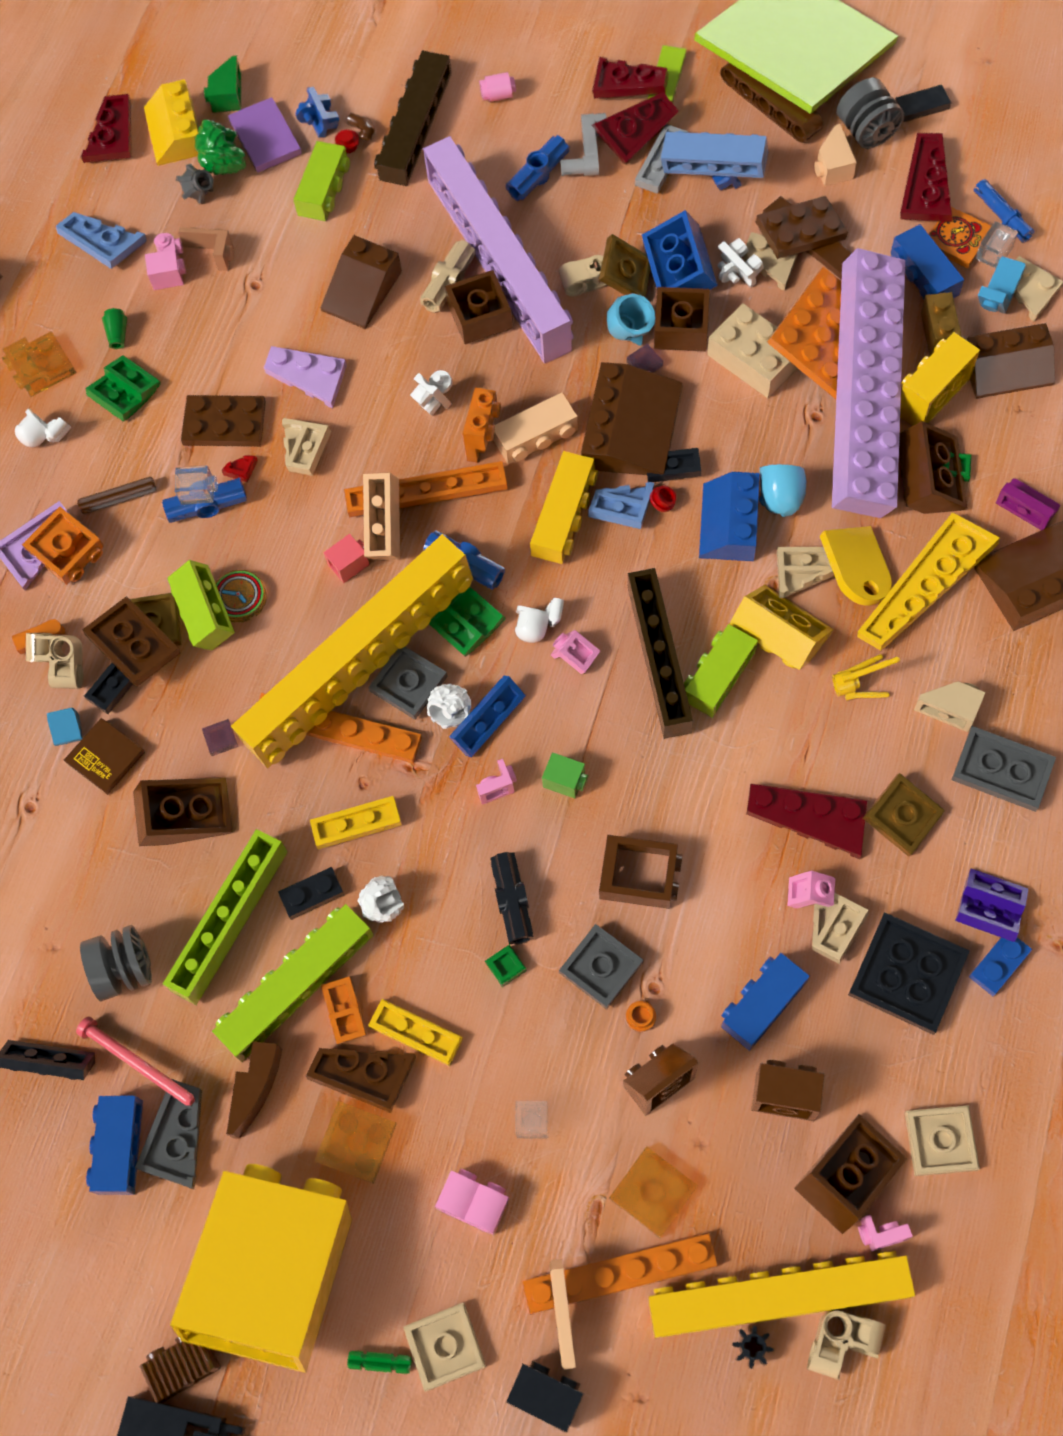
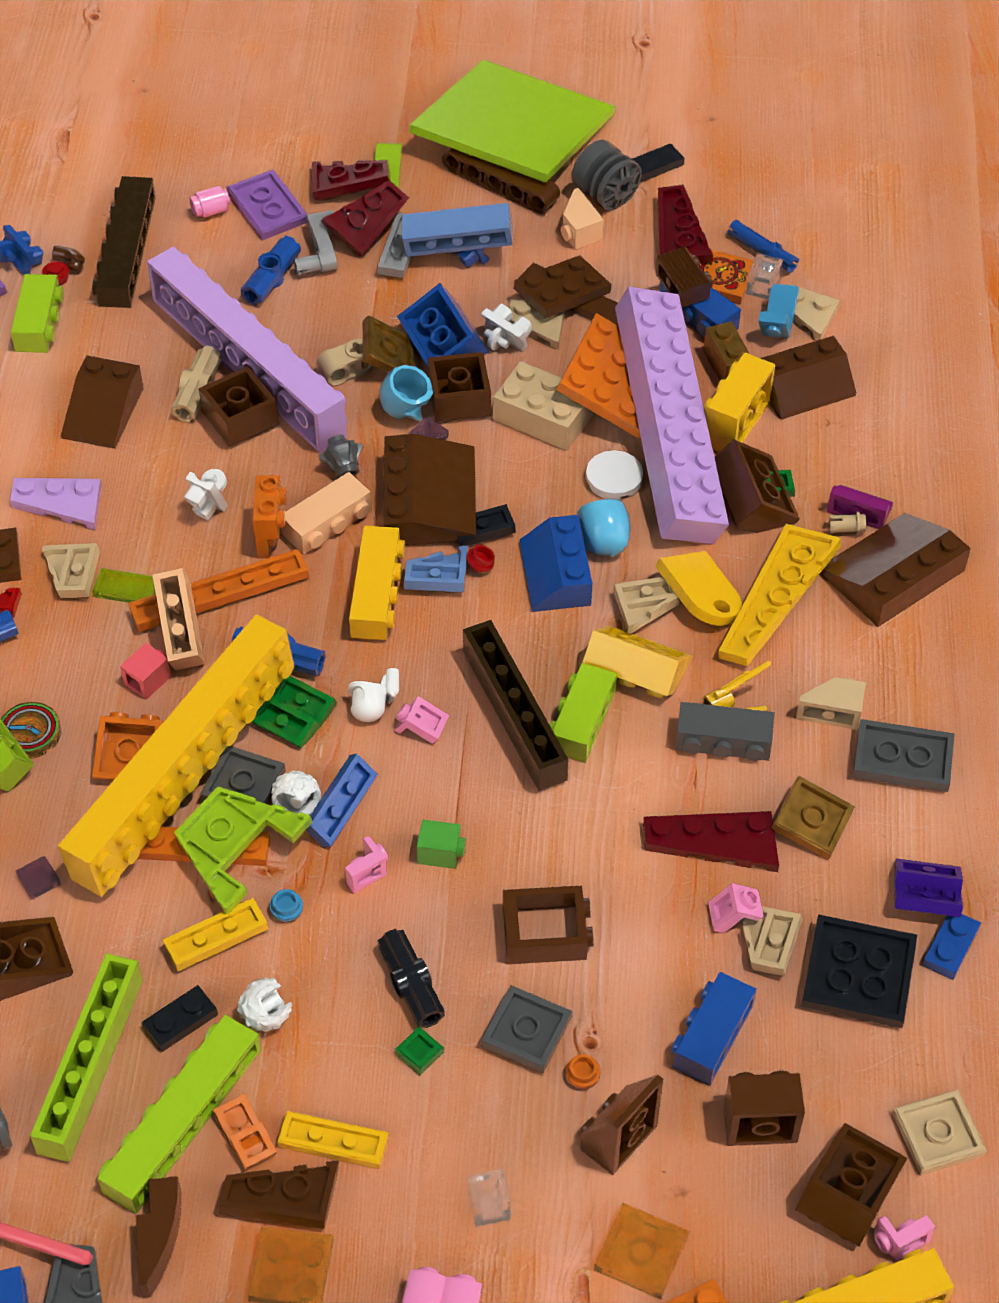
camera: 20 degrees left, 15 degrees down
(311, 626) = (119, 741): none -> orange plate
(344, 469) = (122, 586): none -> clear neon green tile
(380, 728) = (224, 829): none -> lime wing
(421, 806) = (286, 905): none -> dark azure plate
(550, 96) = (267, 204): none -> medium lavender tile
(560, 373) = (342, 455): none -> dark grey rock
(805, 432) = (614, 474): none -> white tile
(843, 714) = (725, 731): none -> dark grey brick
(916, 238) = (683, 276): none -> reddish brown brick
(1011, 520) = (848, 523): none -> tan pin

